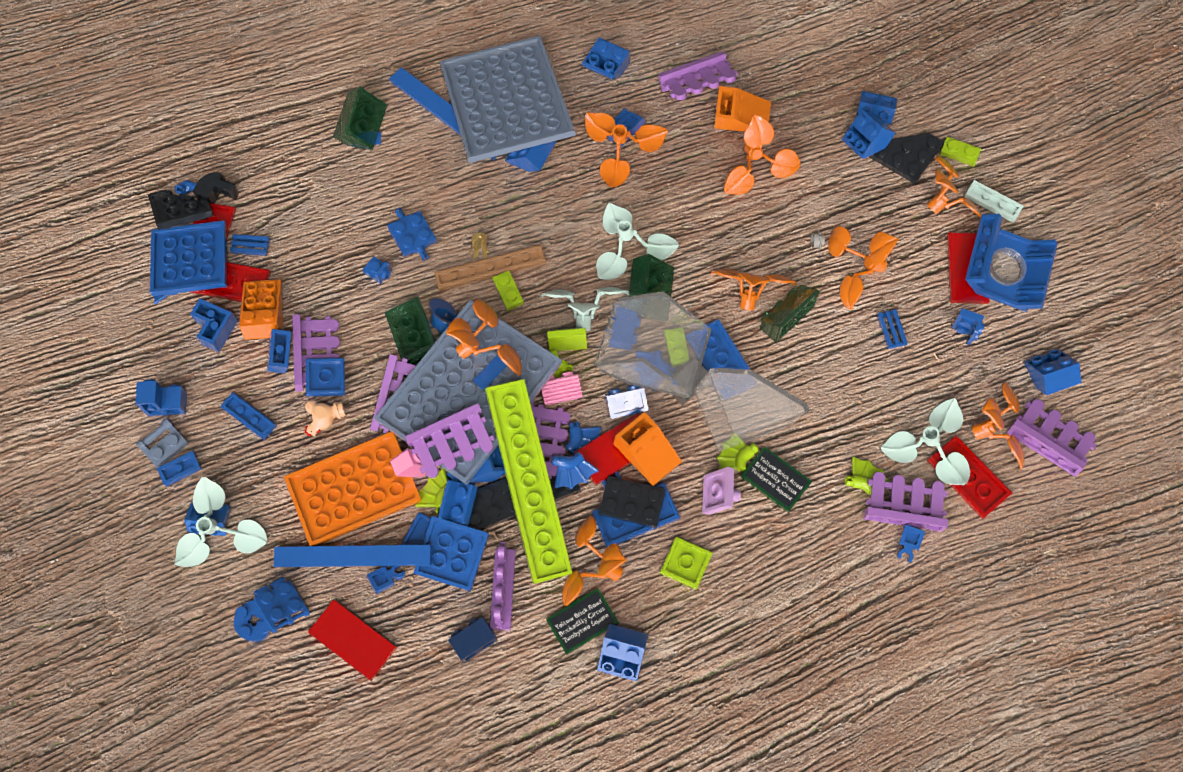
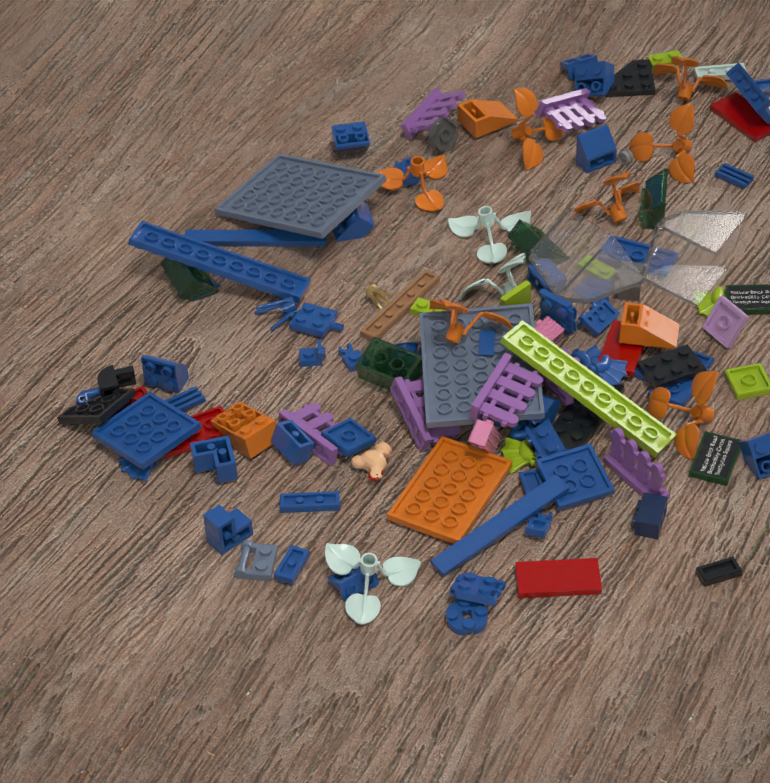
camera: 40 degrees left, 25 degrees down
(253, 207) = (164, 373): none -> blue slope
(381, 127) = (219, 261): none -> blue plate
(396, 207) = (287, 306): none -> blue plant
(405, 294) = (349, 356): none -> blue plate
(475, 736) = (718, 571): none -> black tile
(590, 375) = (559, 310): none -> blue plate
(682, 109) = (443, 134): none -> dark grey tile
(793, 216) = (595, 149): none -> blue slope
(806, 146) = (571, 110): none -> medium lavender fence

